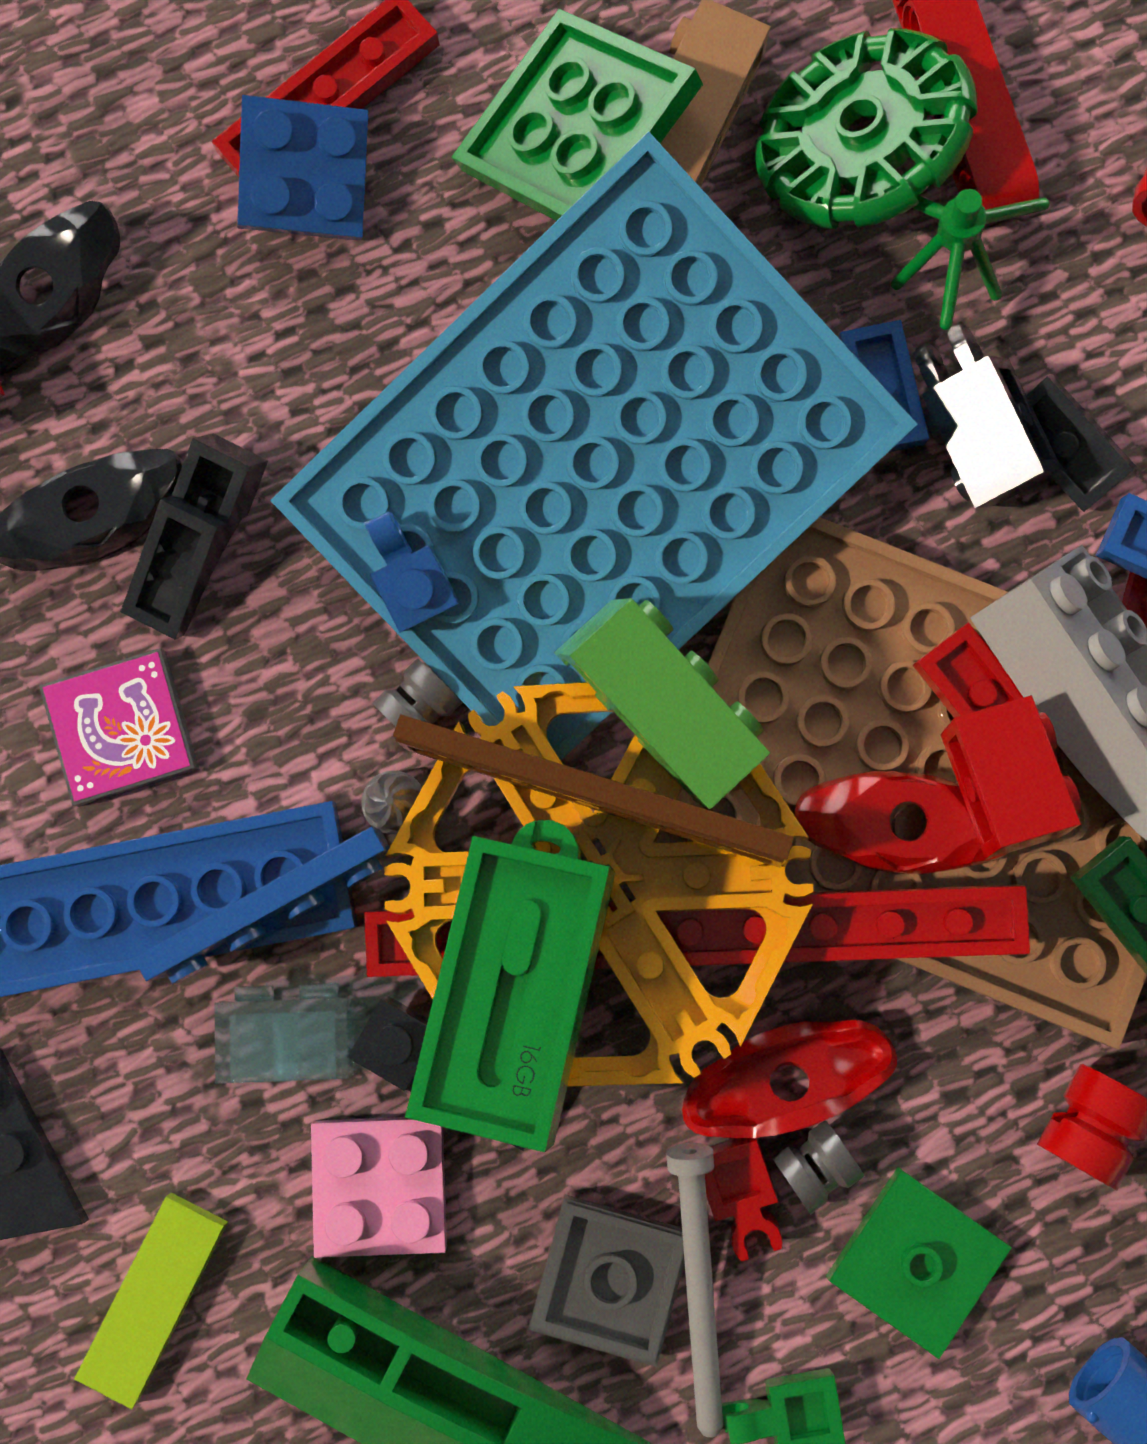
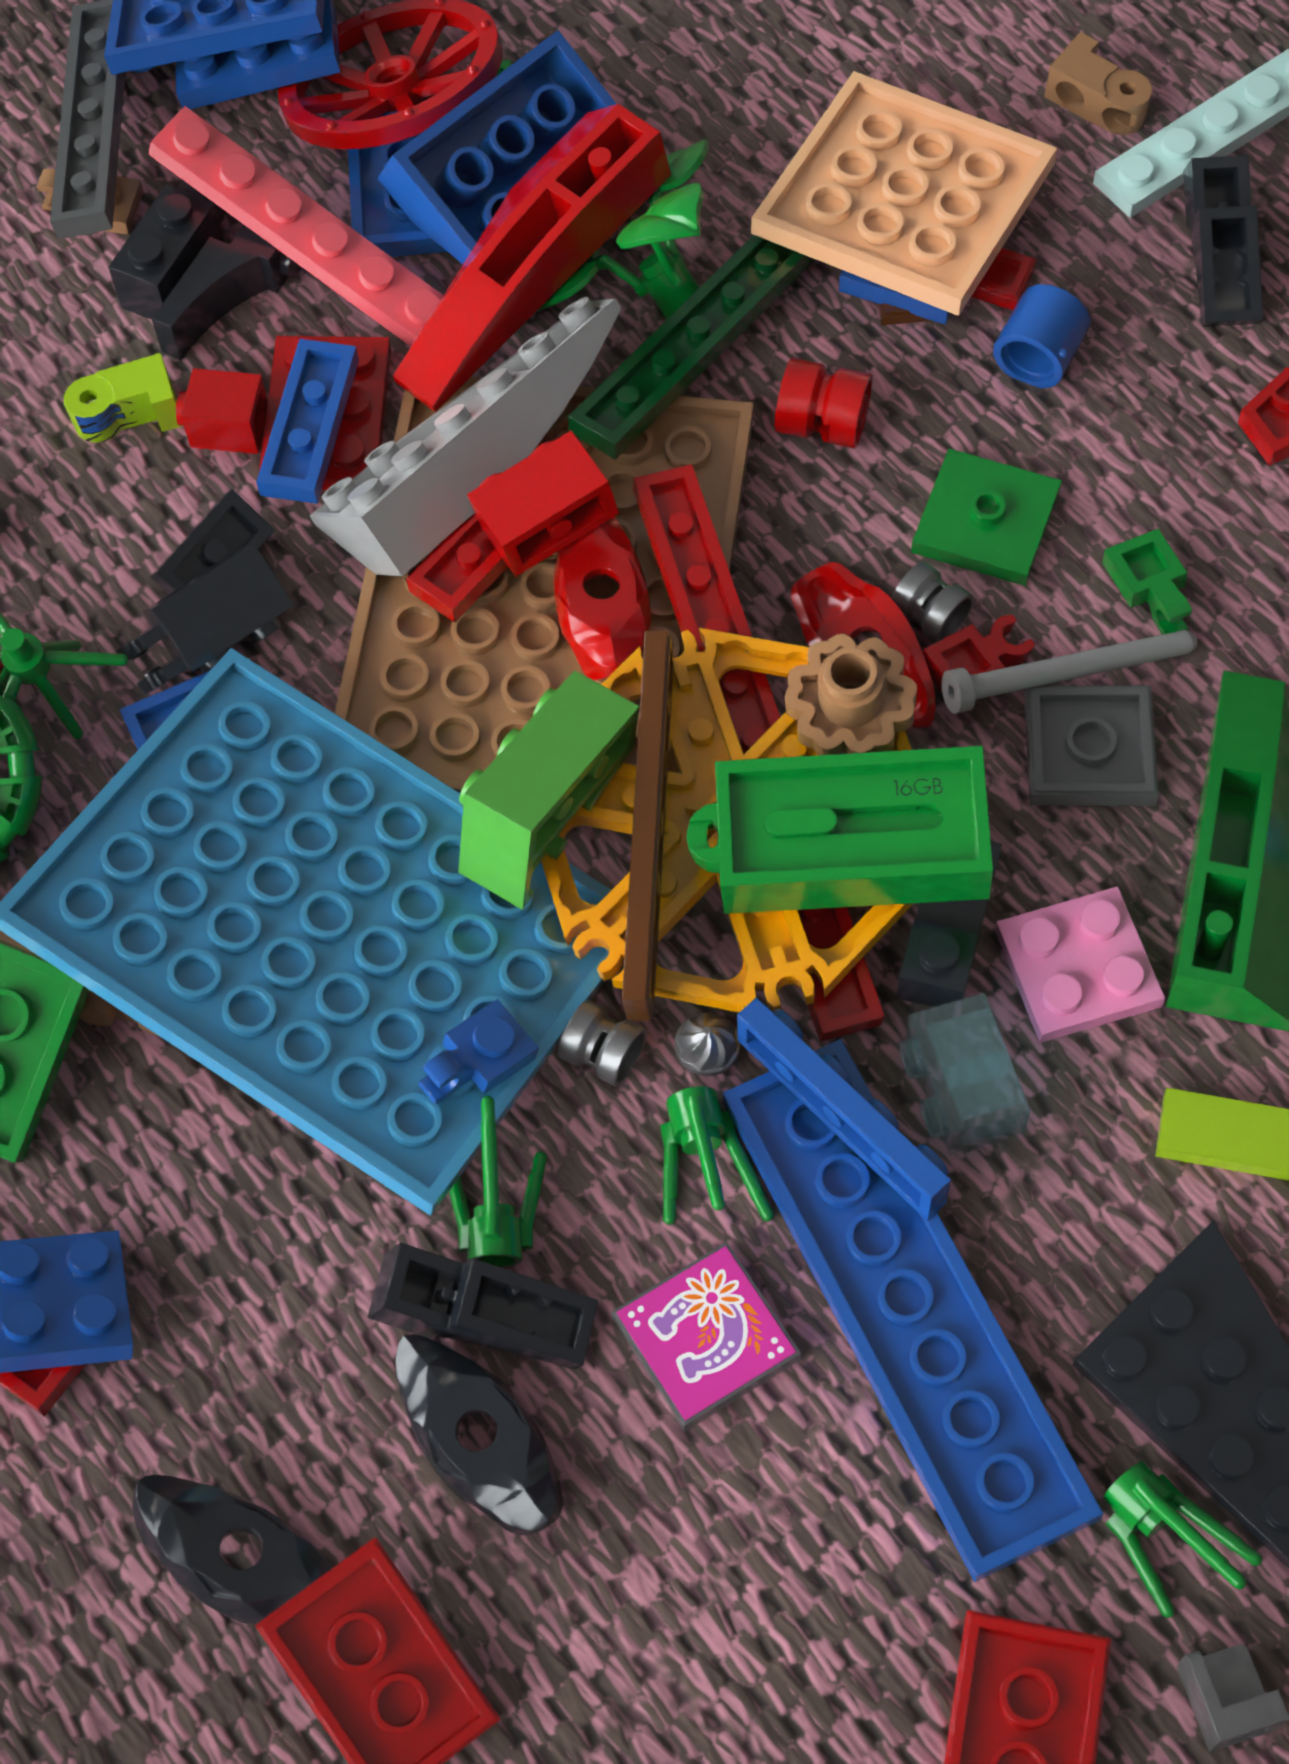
camera: 105 degrees left, 20 degrees down
(267, 561) = (494, 1231): none -> green plant
(314, 770) = (698, 1127): none -> green plant
(665, 1073) = (850, 696): none -> medium nougat plant

